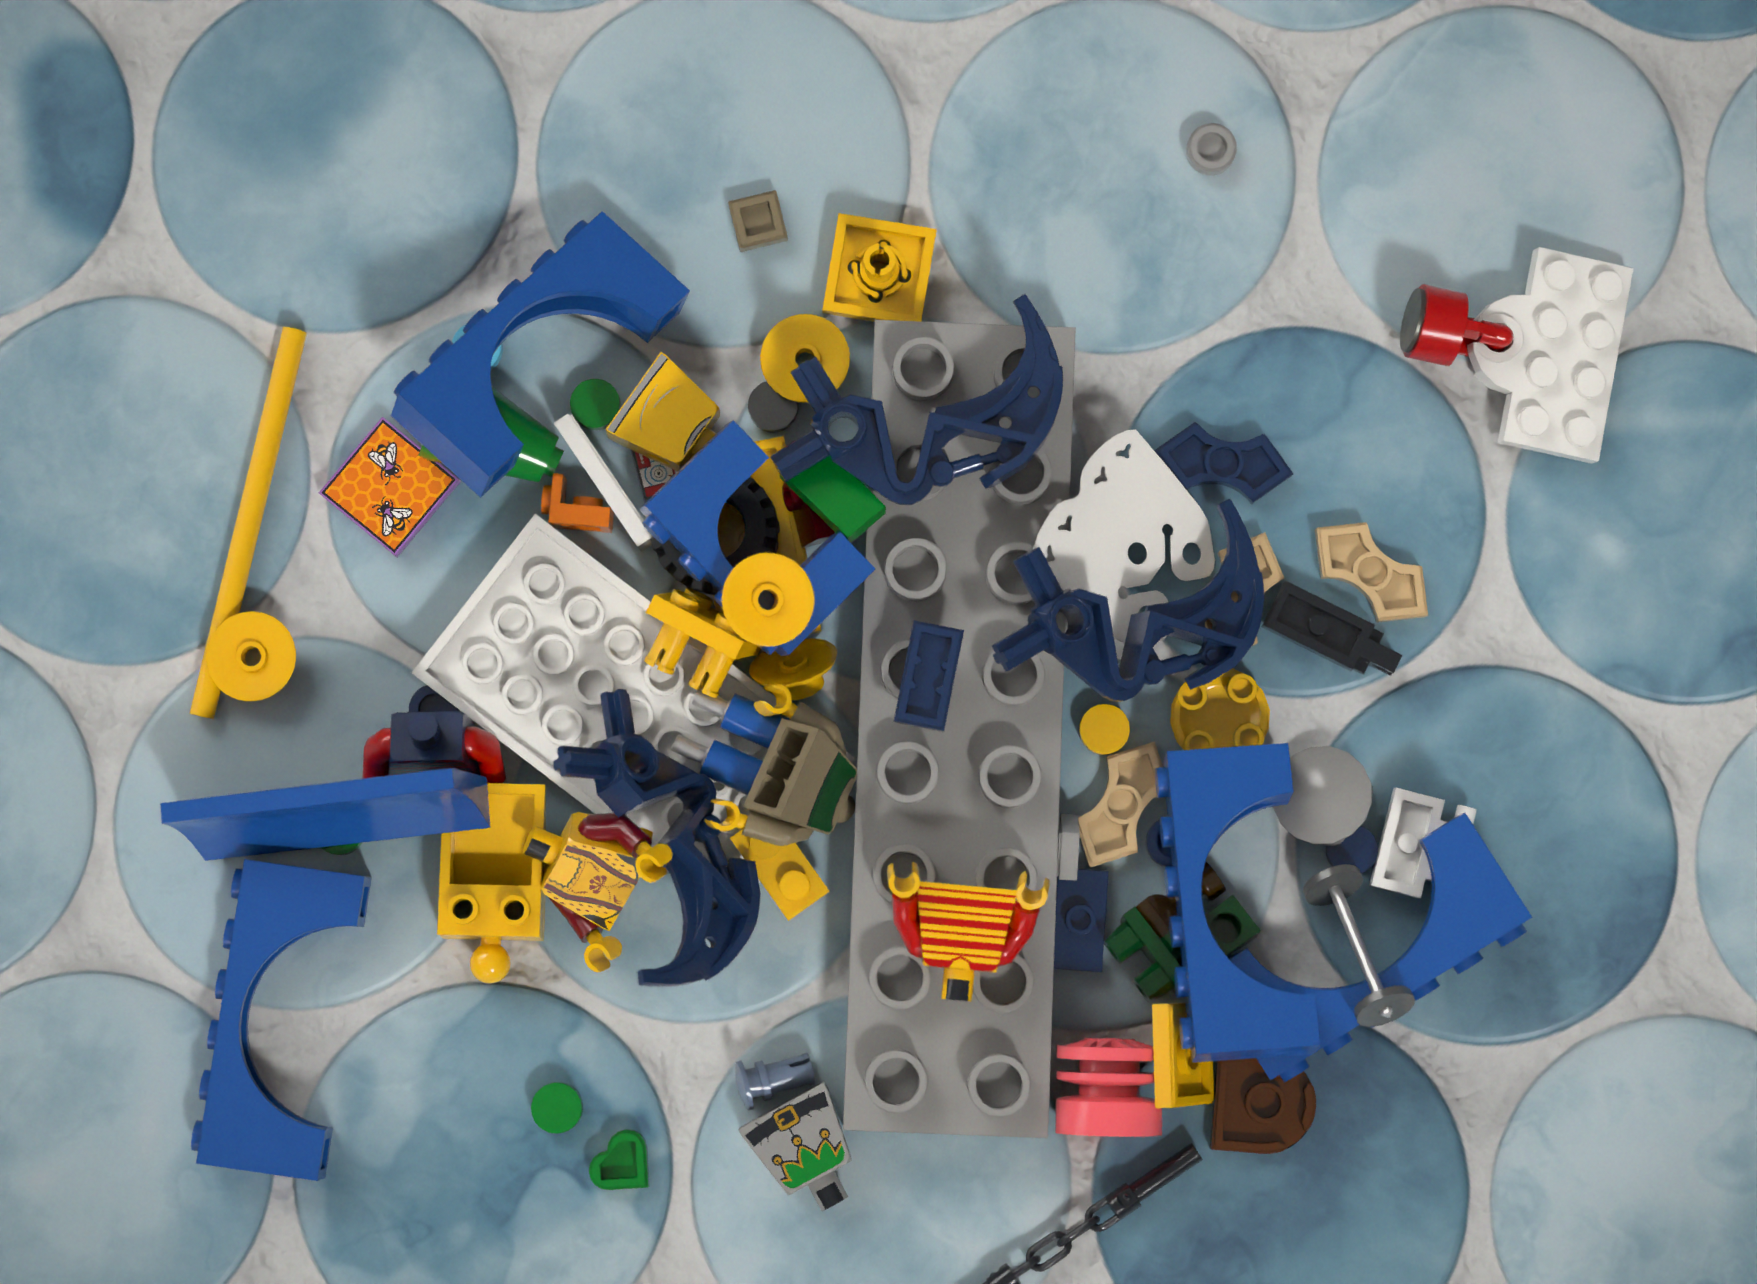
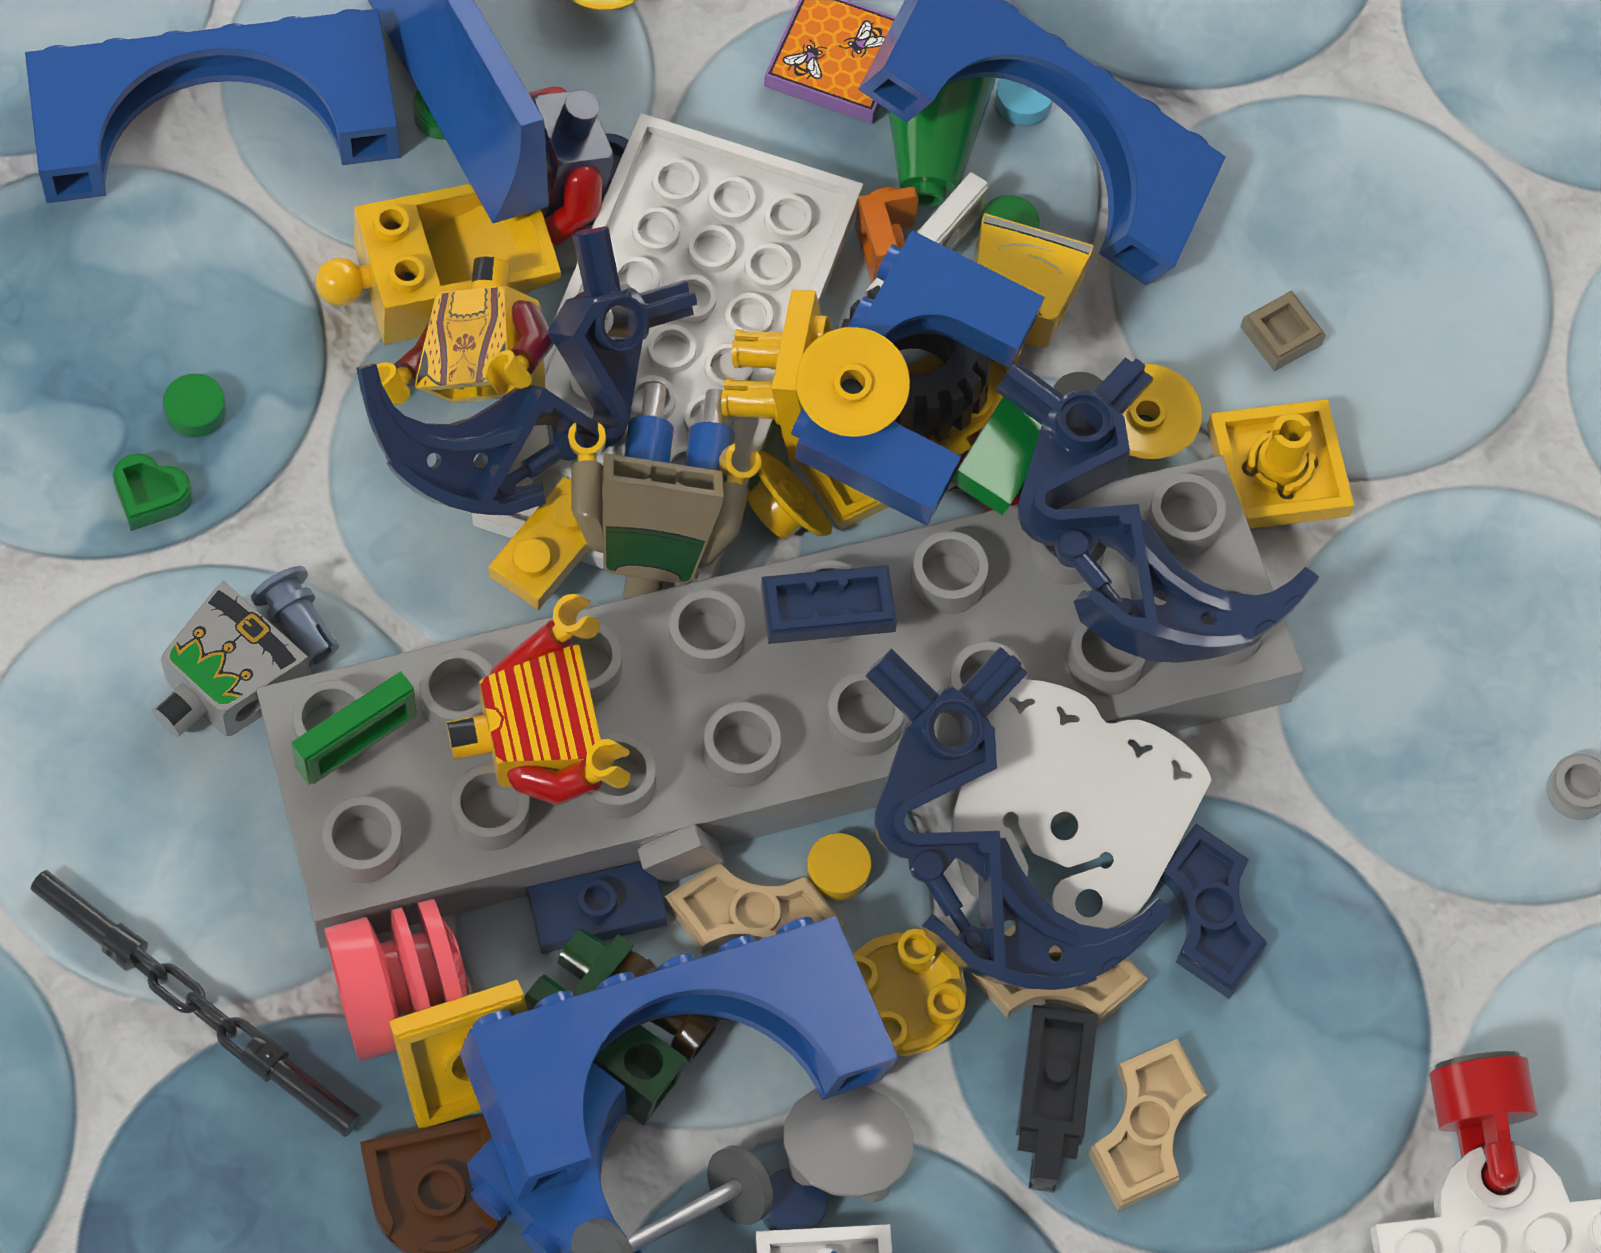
camera: 65 degrees right, 20 degrees down
(925, 1069) = (354, 728): none -> green tile

